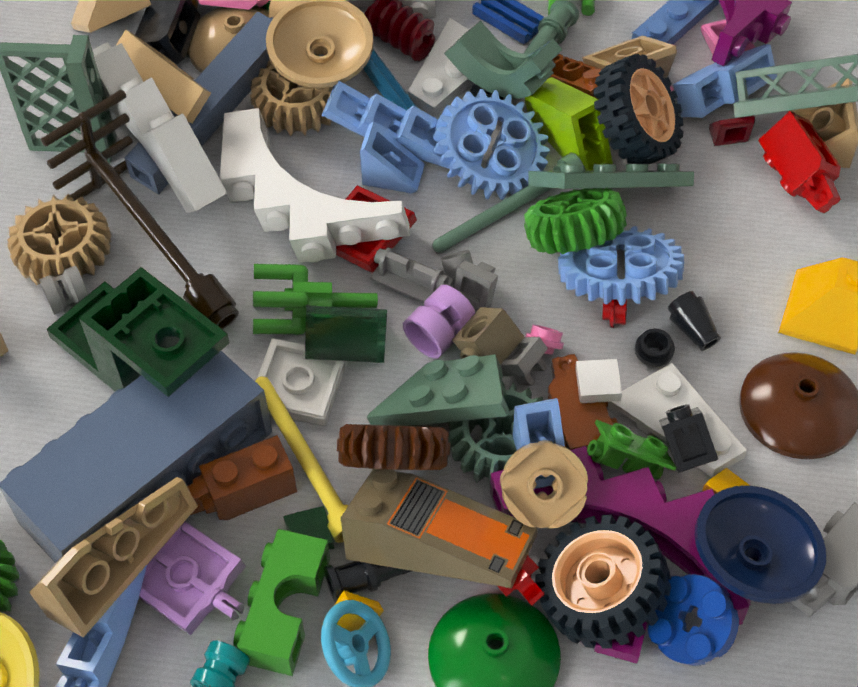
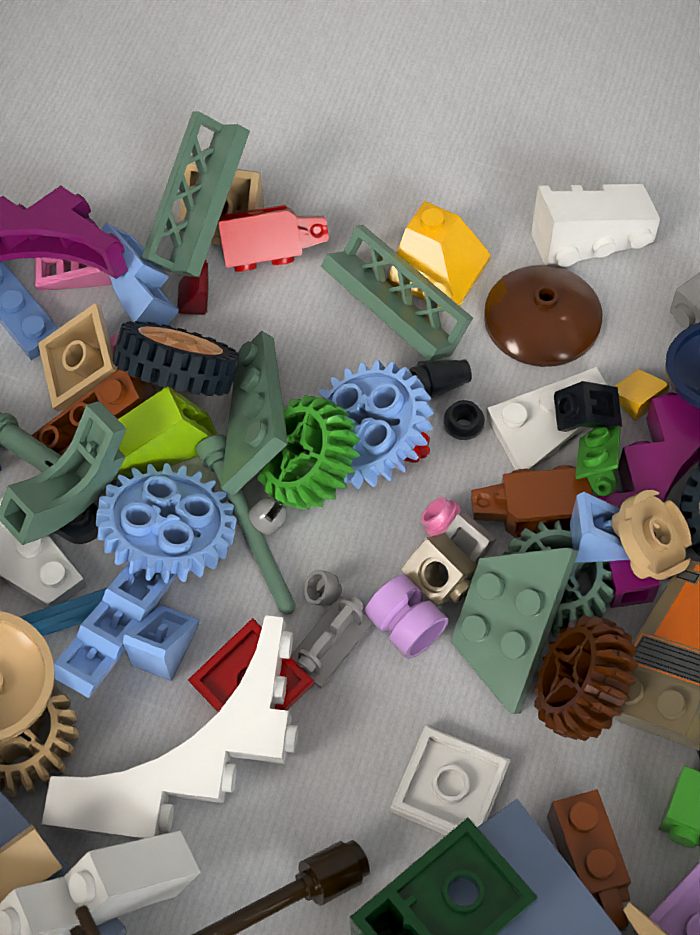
camera: 80 degrees left, 5 degrees up
(299, 296) = (348, 764): bright green plant -> none
(305, 458) = (643, 754): light yellow piece -> none
(310, 523) = (644, 791): dark green tile -> none
(345, 334) = (407, 716): clear green slope -> none
(476, 283) = (360, 571): light grey tile -> none
(513, 221) = (261, 521): none -> light grey hinge
(598, 381) = (523, 468): white tile -> none
(769, 272) = (389, 304): none -> sand green fence

